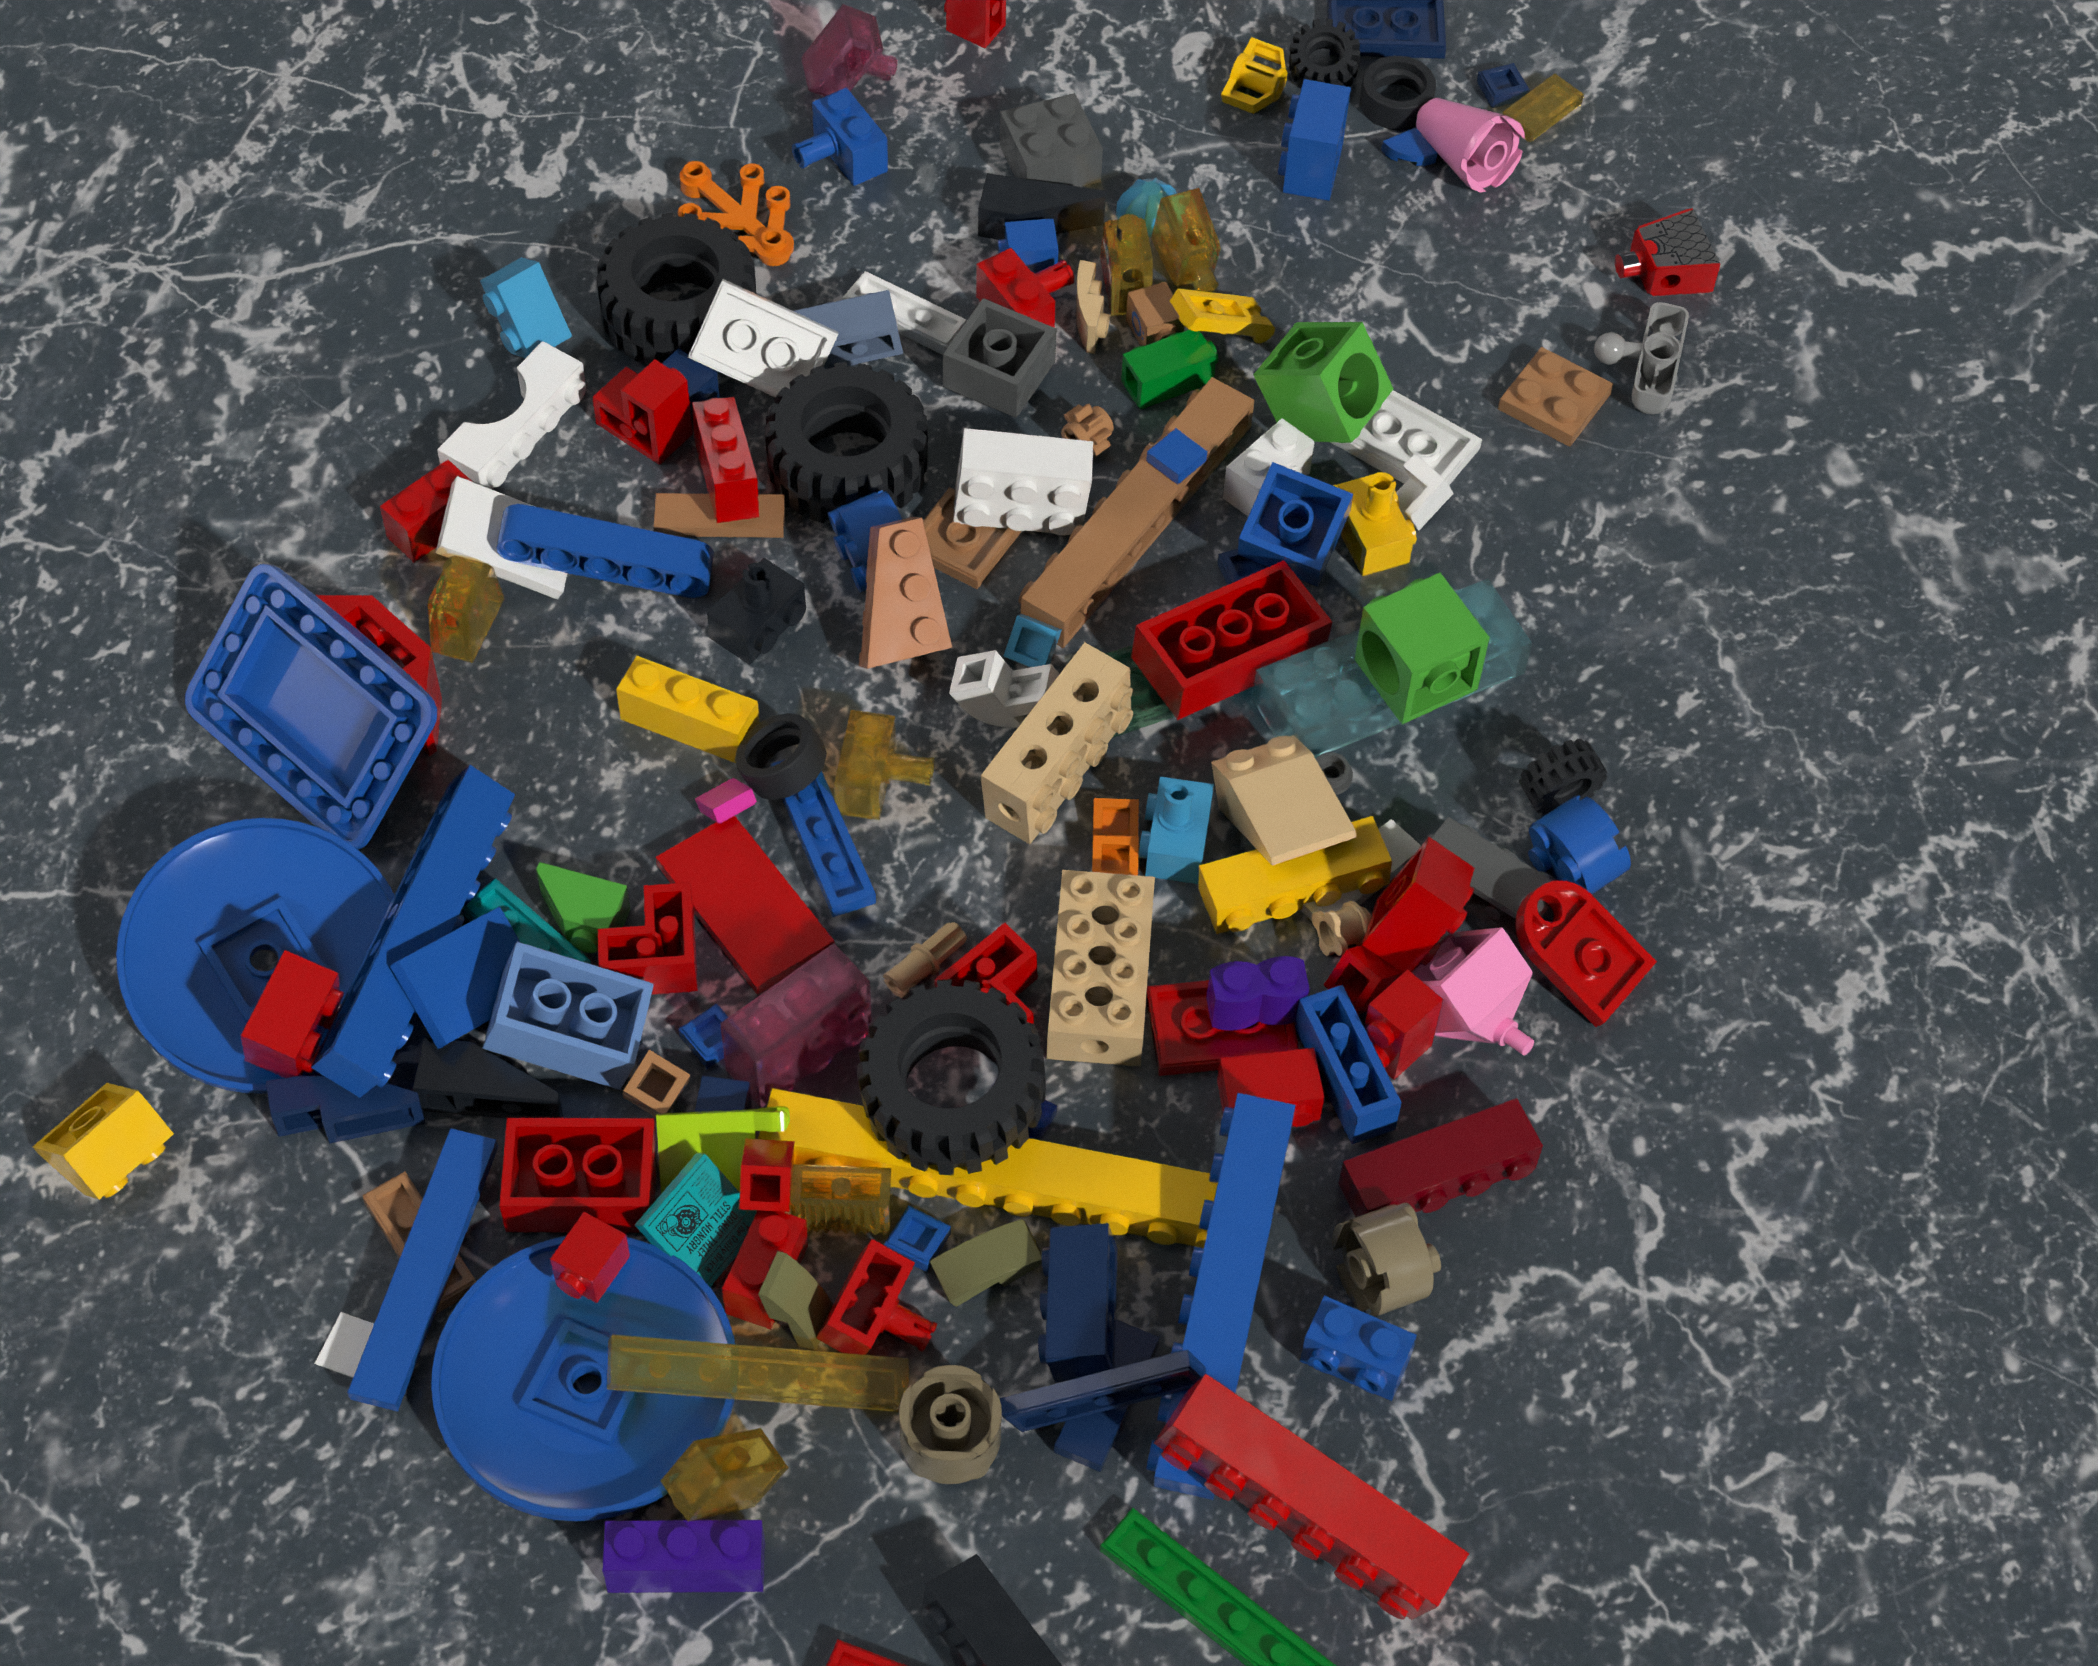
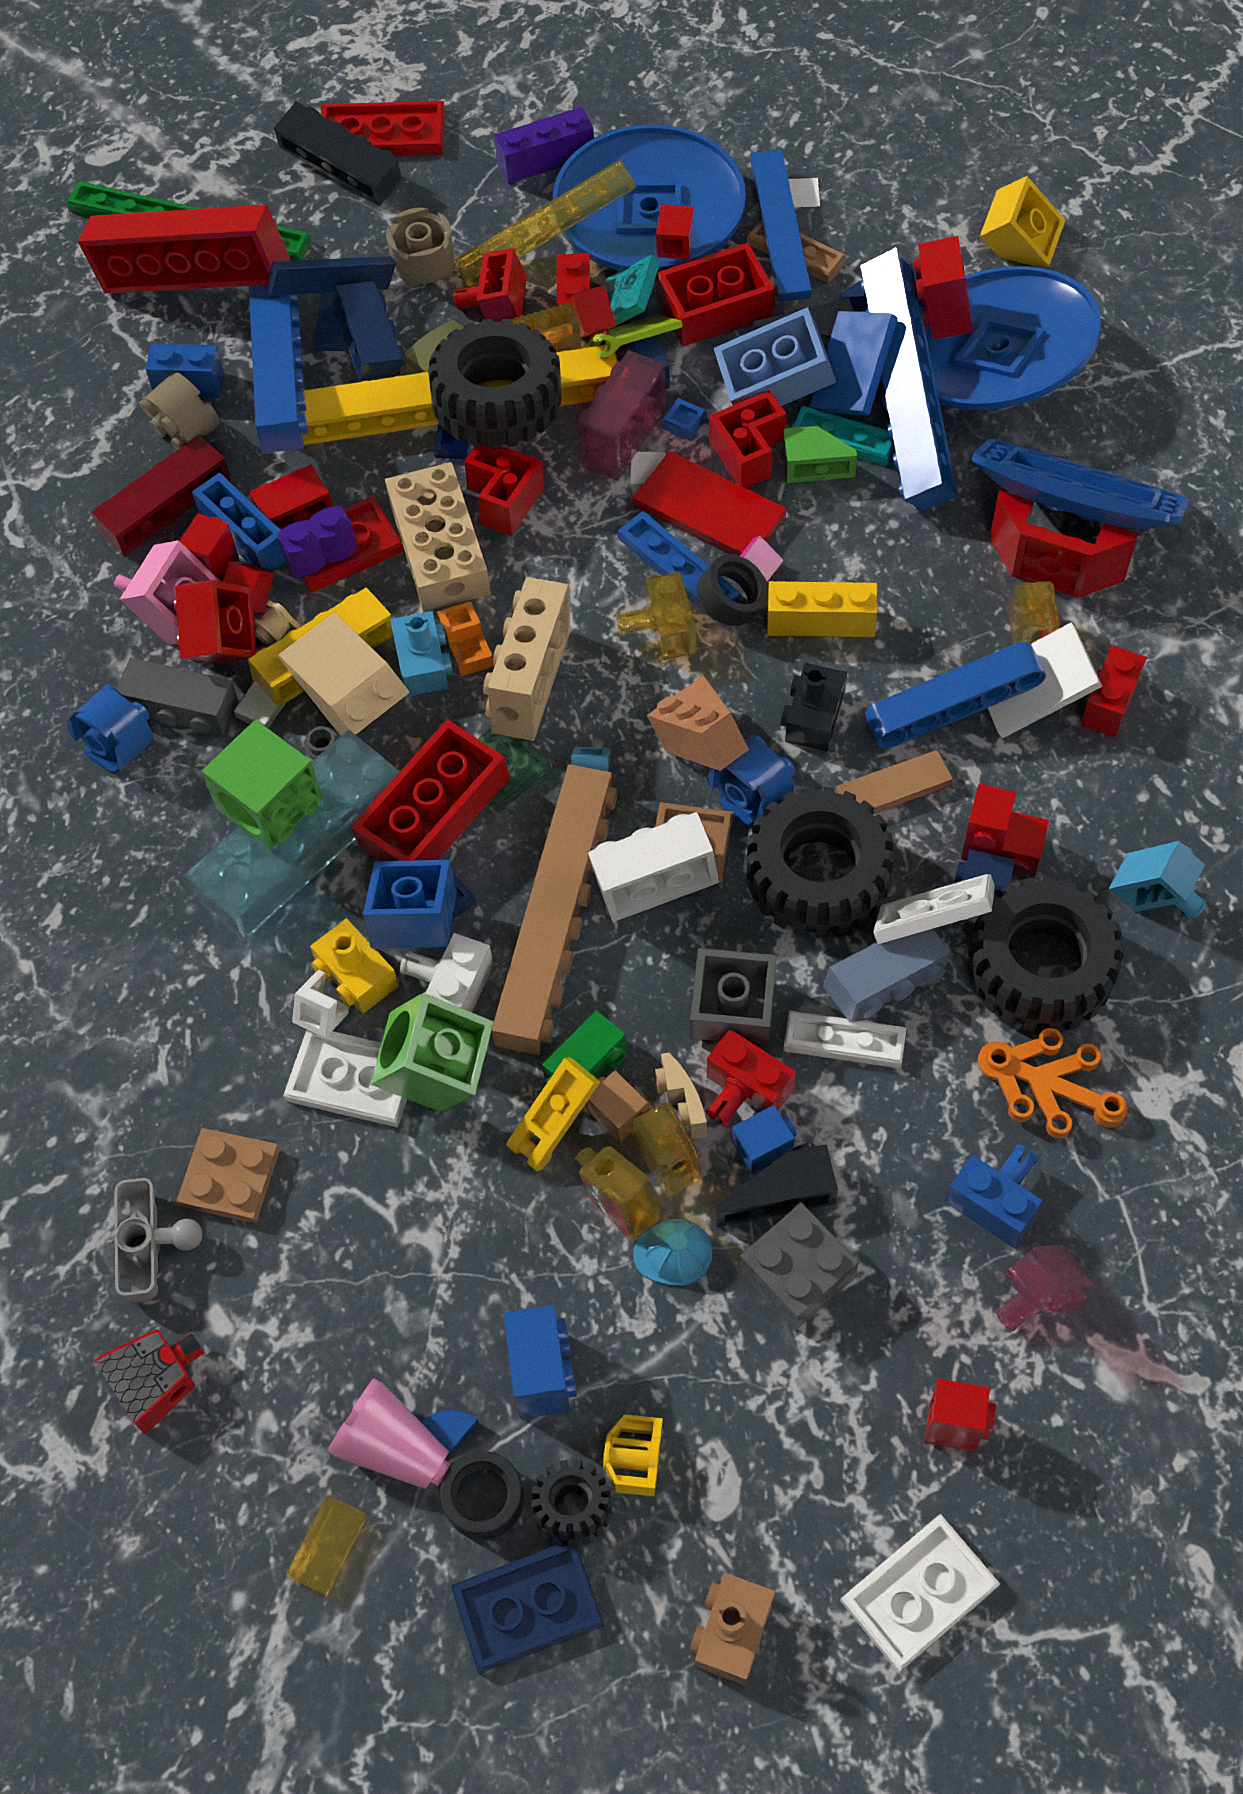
camera: 165 degrees right, 5 degrees up
(550, 386) = (1100, 834): white arch -> none
(656, 1085) = (696, 357): medium nougat brick -> none
(724, 1474) = (537, 169): clear yellow brick -> none
(725, 459) = (909, 808): red brick -> none
(795, 1298) = (542, 268): olive slope -> none
(924, 959) = (564, 509): tan axle -> none
(996, 693) = (596, 708): white brick -> none
(1089, 424) = (628, 962): medium nougat gear -> none
(1176, 456) = (535, 937): blue tile -> none
(1502, 85) = (377, 1563): dark blue tile -> none
(1562, 775) = (134, 782): black tyre -> none
(1581, 949) = (91, 659): red plate -> none

